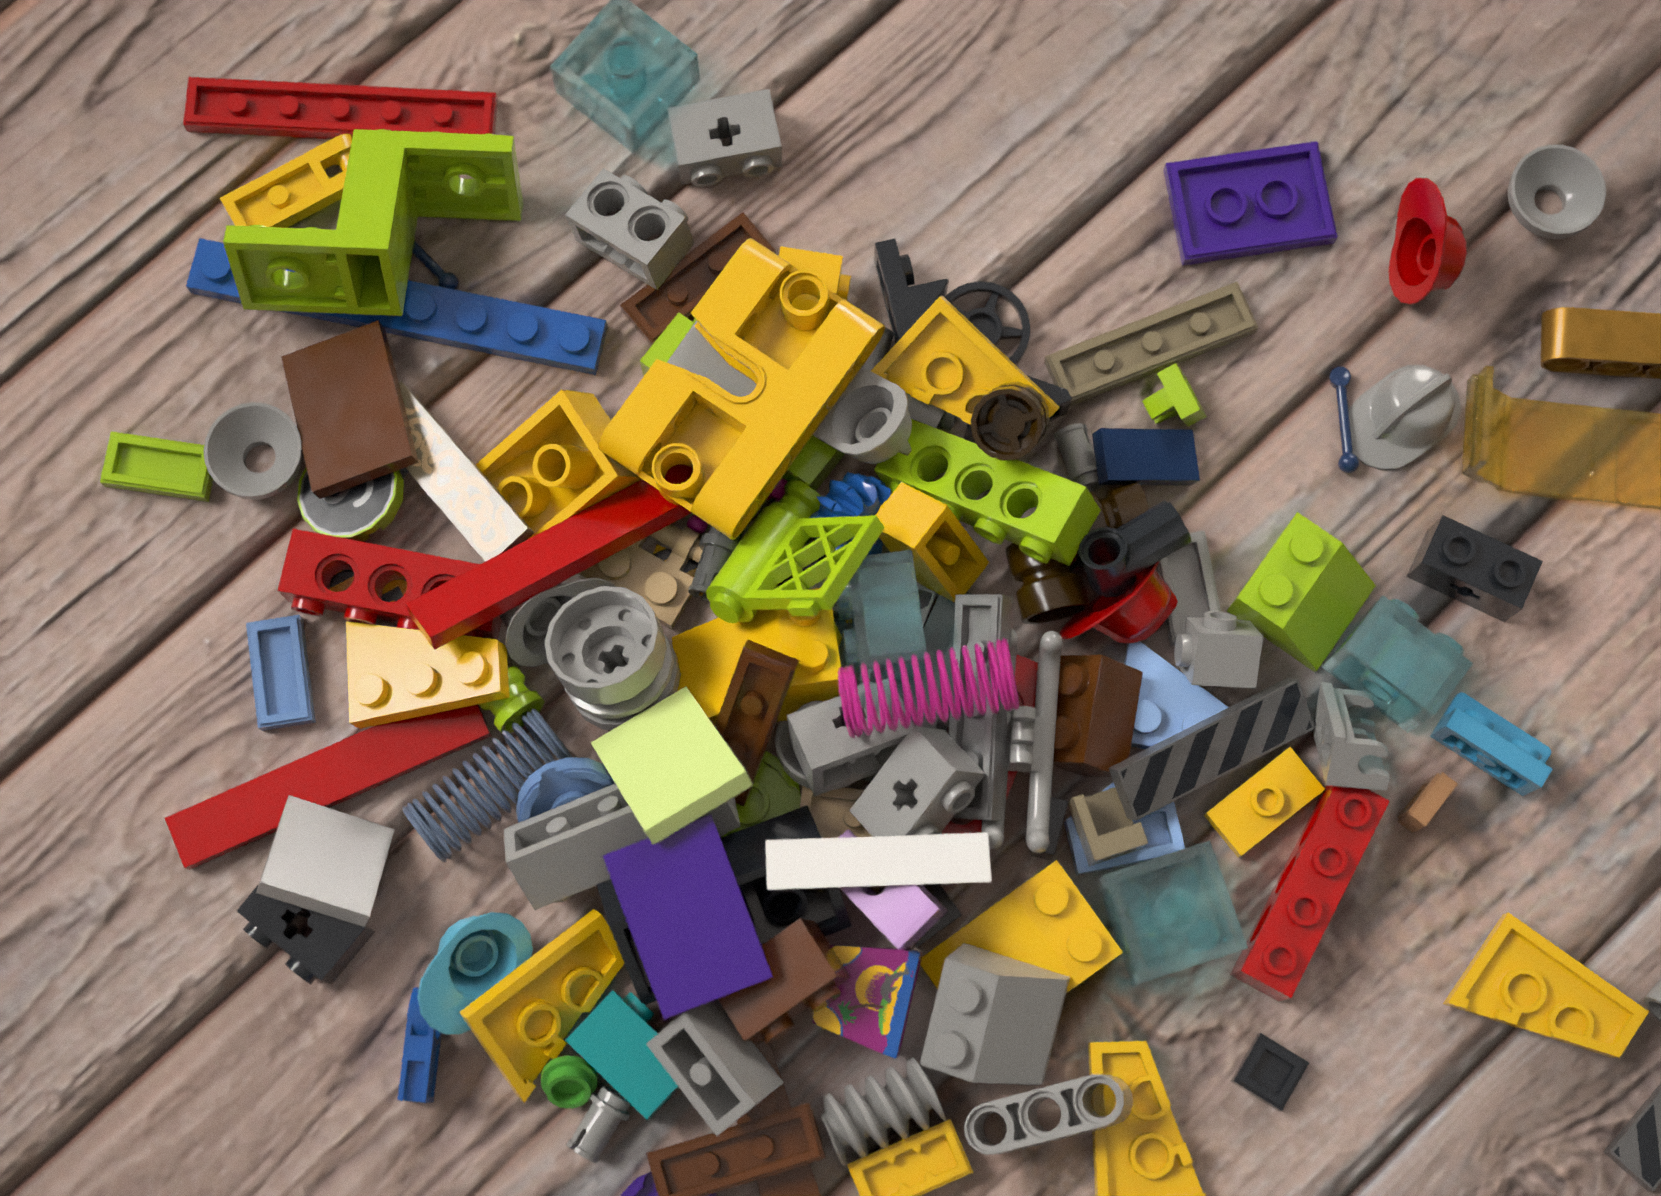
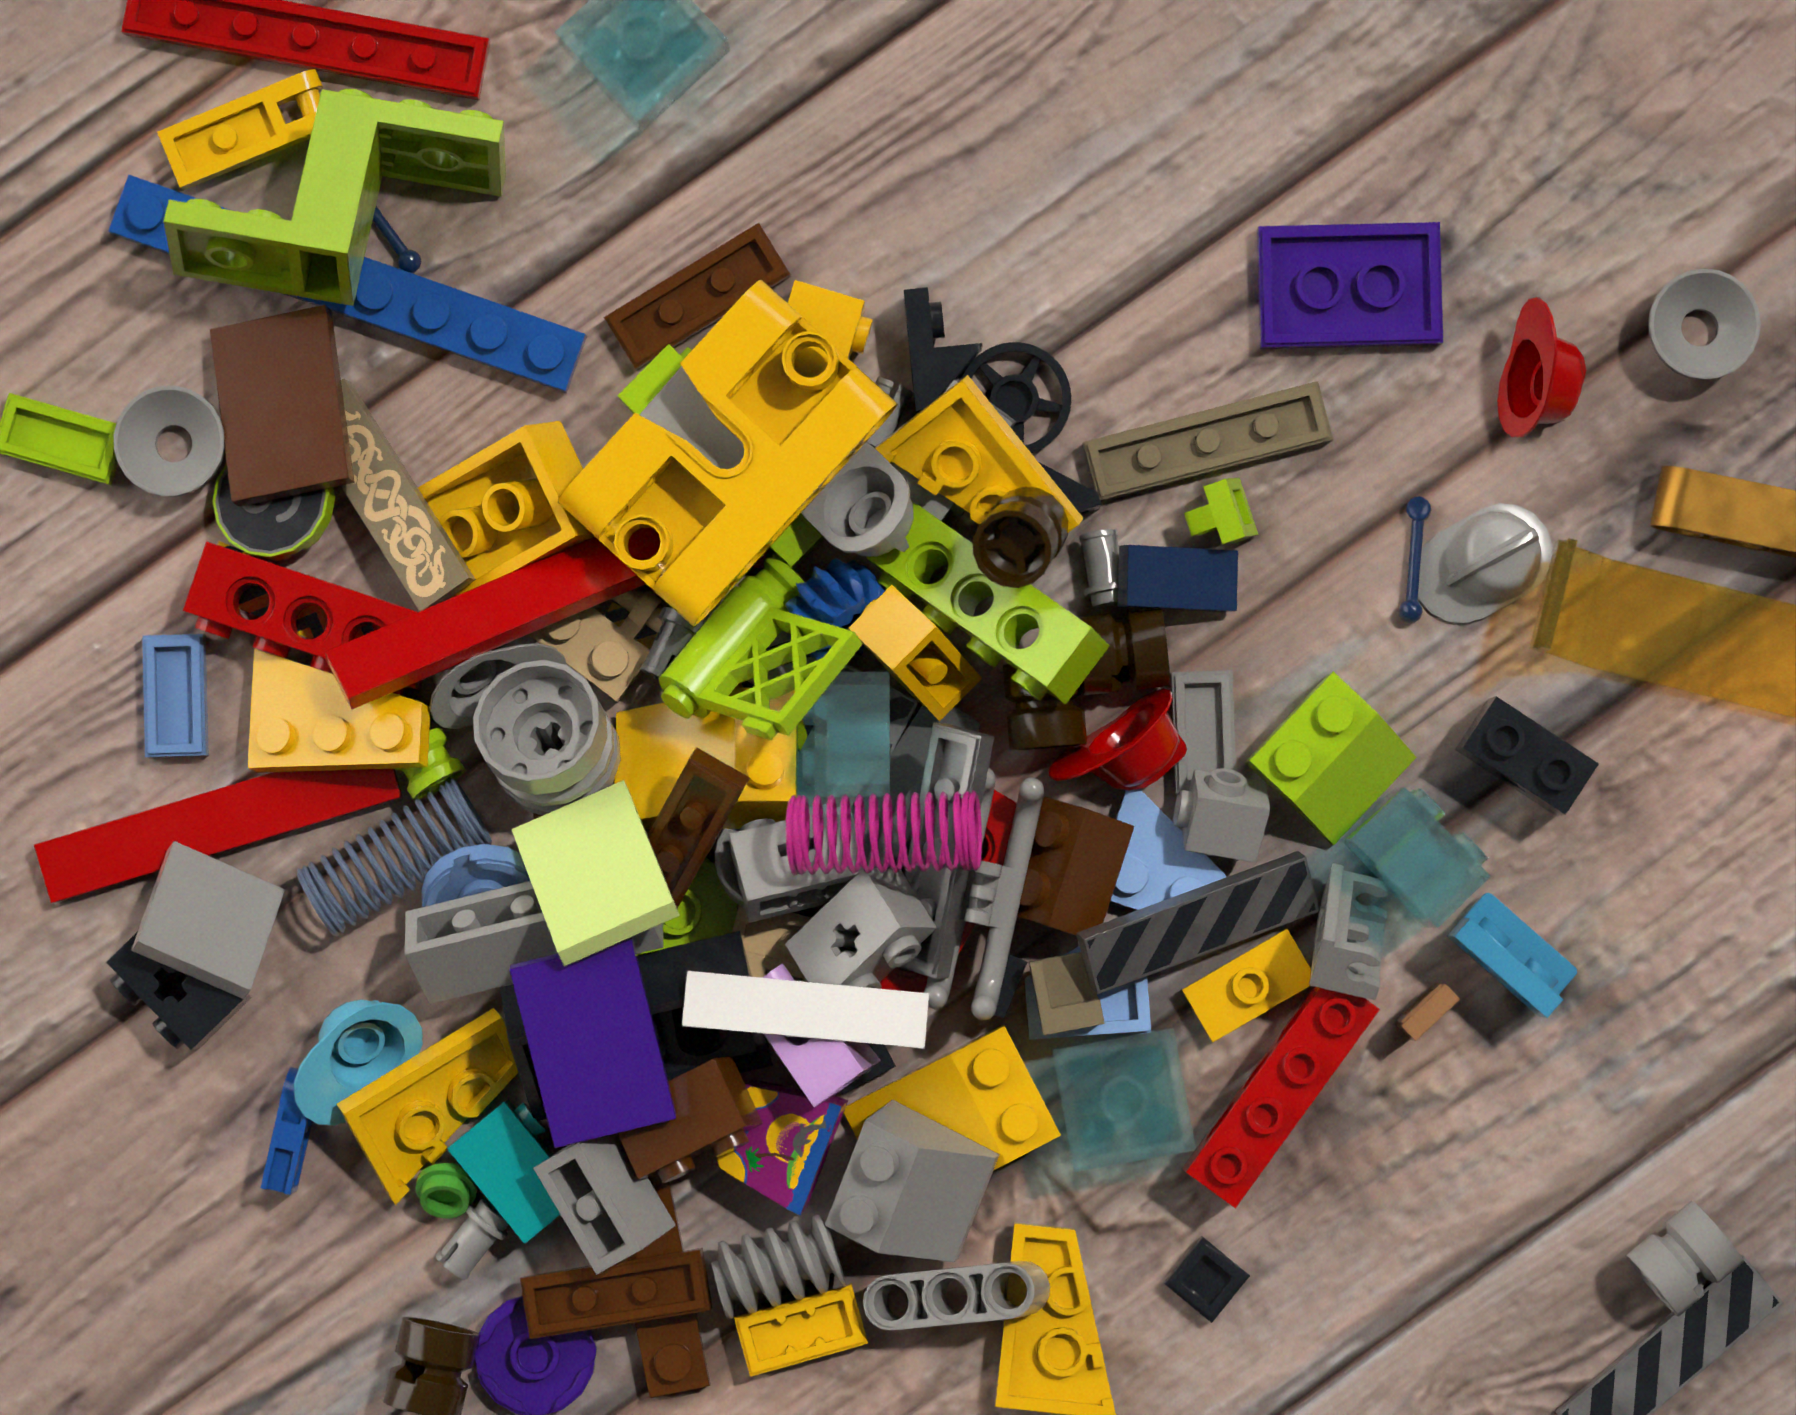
camera: 10 degrees right, 10 degrees up
(624, 235) = (617, 238): light grey brick -> none
(742, 118) = (721, 115): light grey brick -> none
(1133, 548) = (1145, 690): black piece -> none
(1545, 991) = (1519, 1232): yellow wing -> none

